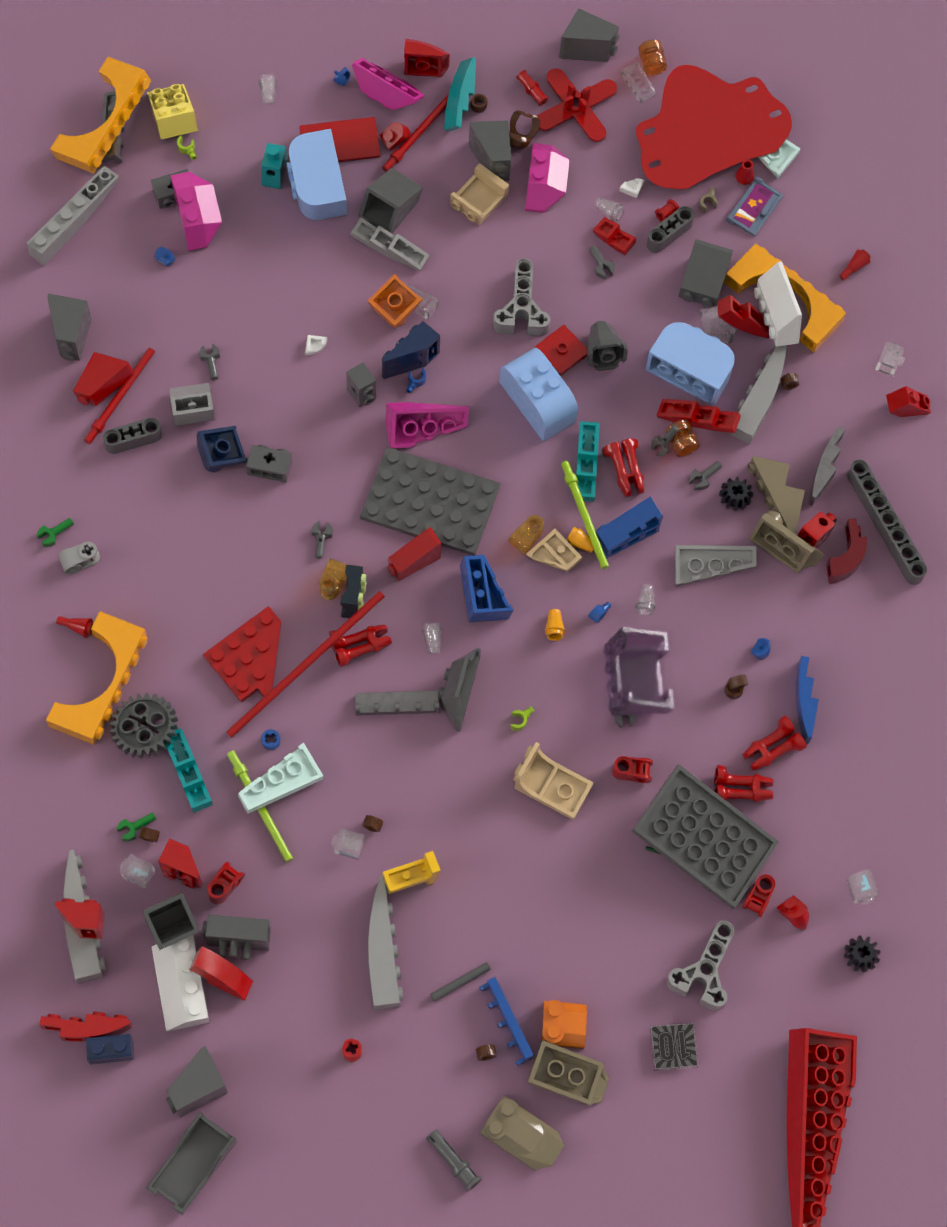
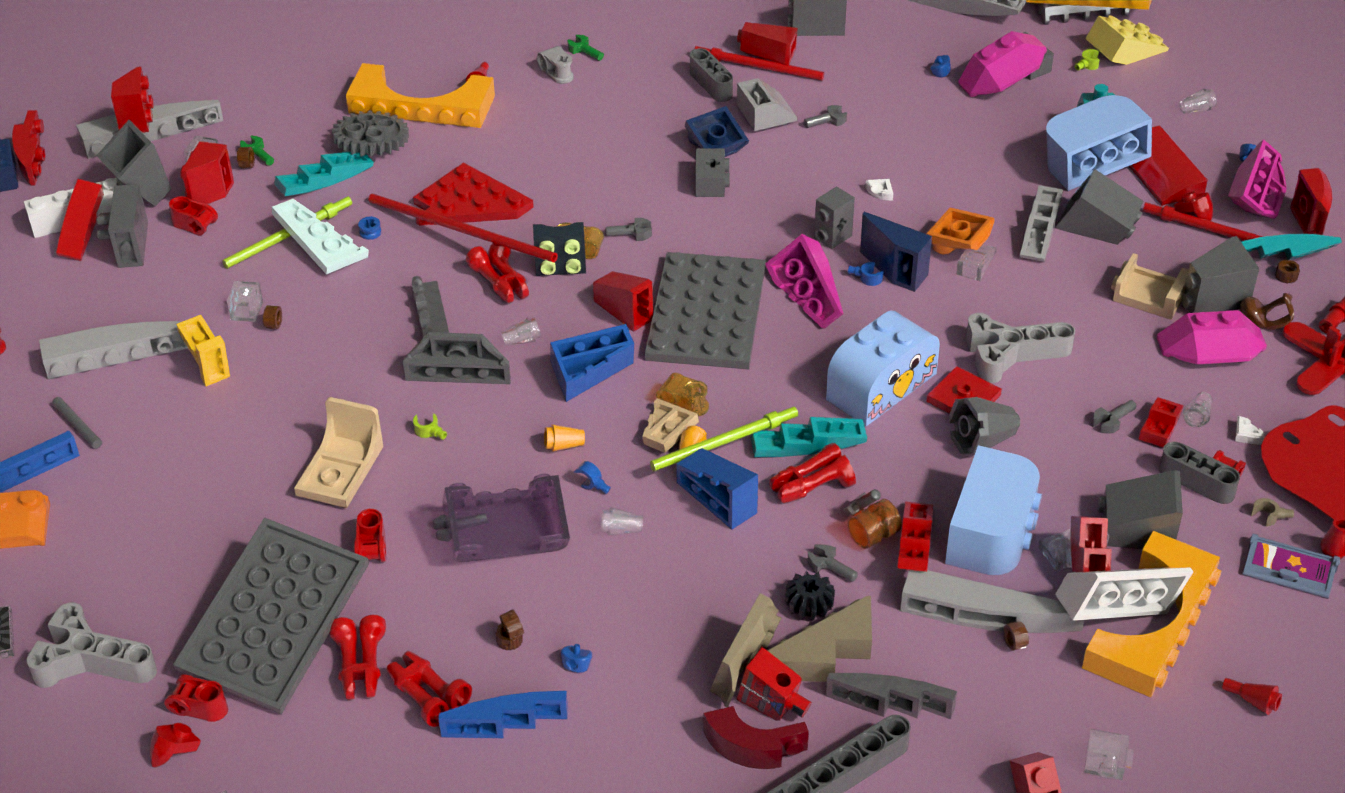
camera: 85 degrees right, 25 degrees down
(709, 561) = (696, 581): light grey wing -> none

